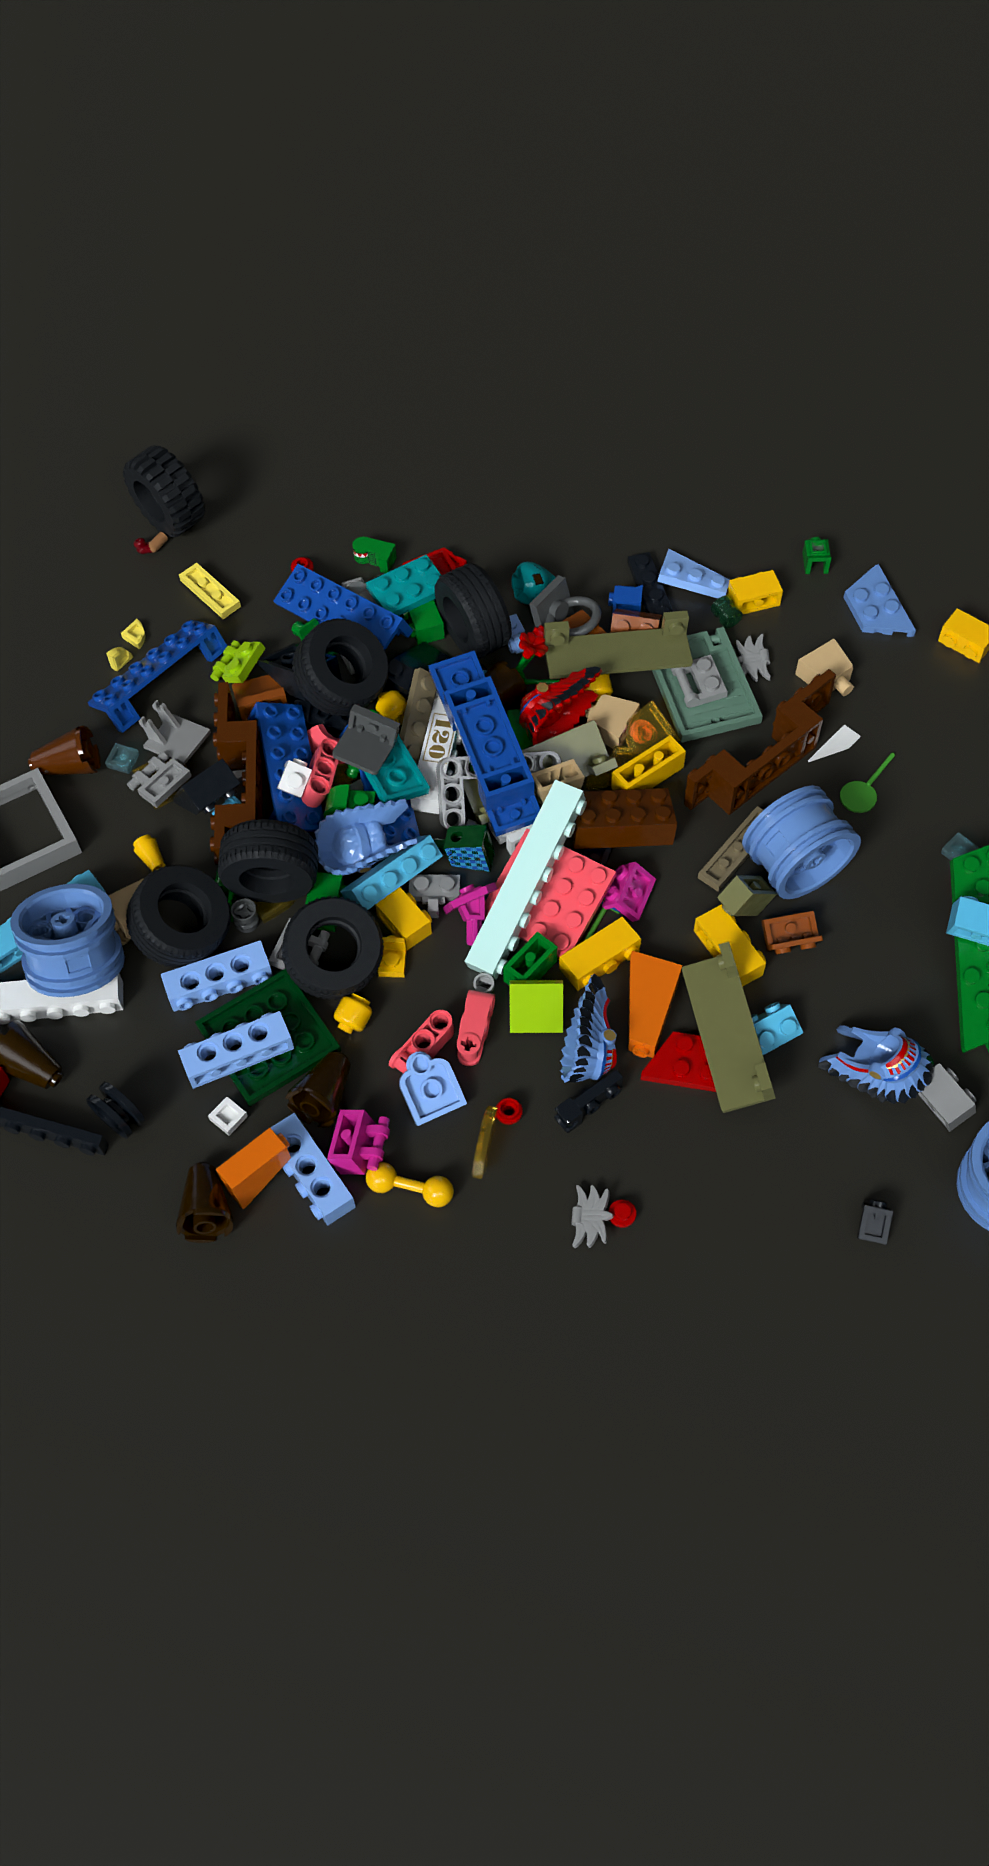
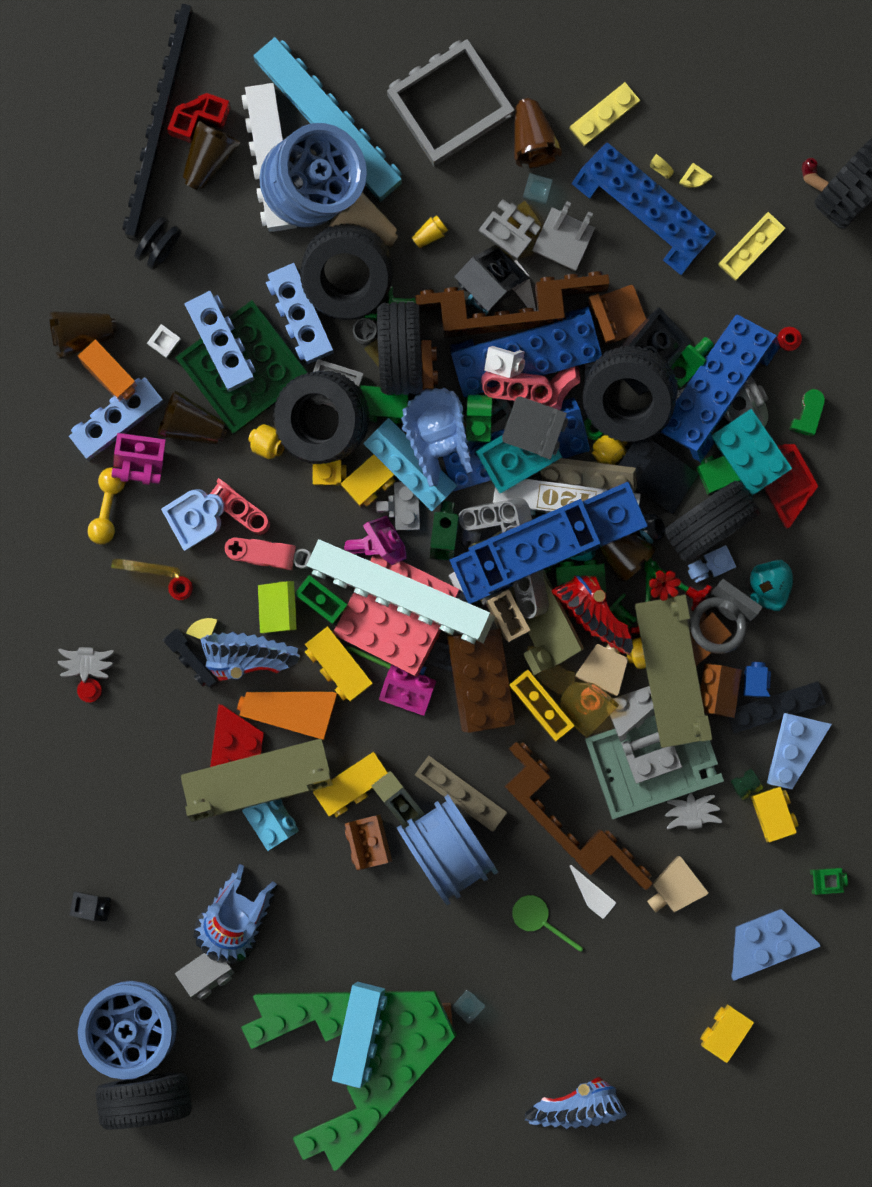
camera: 85 degrees right, 25 degrees up
(58, 702) = (604, 114): none -> light yellow plate
(243, 659) = (655, 292): lime plate -> none
(556, 1089) = (202, 628): none -> light yellow tile
(650, 688) = (632, 711): none -> light grey wing

